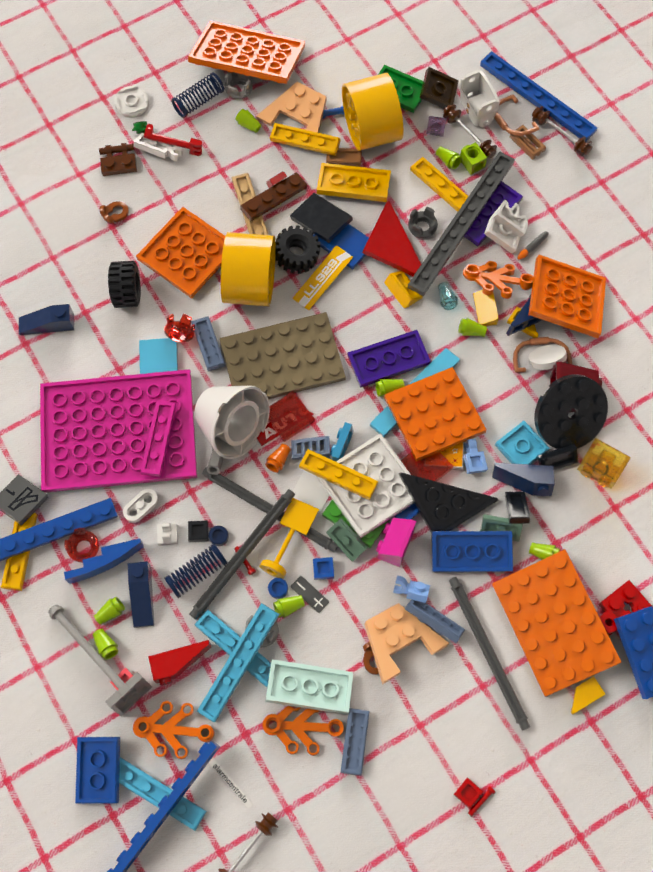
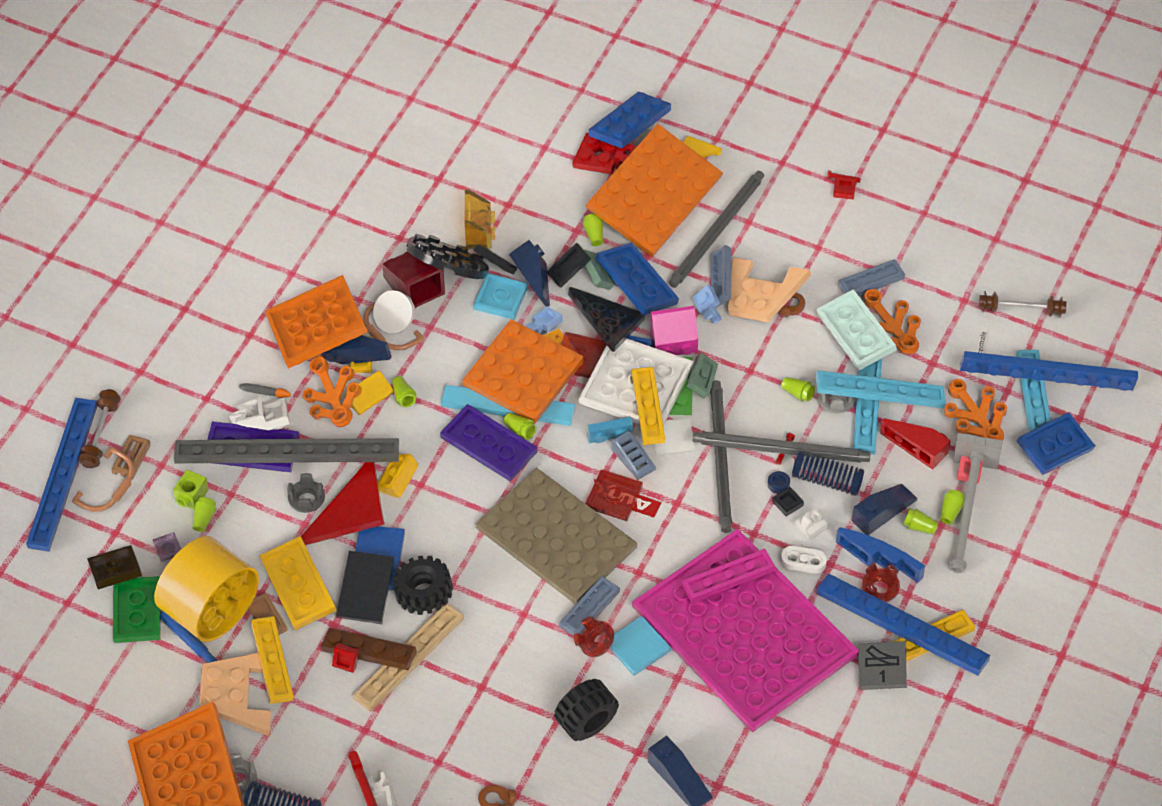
camera: 125 degrees left, 15 degrees down
(184, 252) = (496, 692): orange plate -> none
(214, 463) = (707, 522): light grey bar -> none
(232, 418) = (662, 521): white cone -> none
(248, 121) = (282, 736): lime cone -> none
(248, 269) = (489, 591): yellow wheel -> none
(278, 458) = (665, 475): orange cone -> none
(278, 588) = (788, 408): blue tile -> none
(299, 518) = (715, 419): yellow piece -> none
(309, 594) = (772, 384): dark grey sticker -> none
(322, 277) = (448, 552): yellow sticker -> none
(323, 568) = (742, 381): blue plate -> none
(439, 183) = (242, 507): yellow tile -> none
(447, 296) = (382, 427): clear light blue cone -> none
(454, 115) = (142, 535): reddish brown axle -> none
(482, 101) = (112, 511): white piece -> none

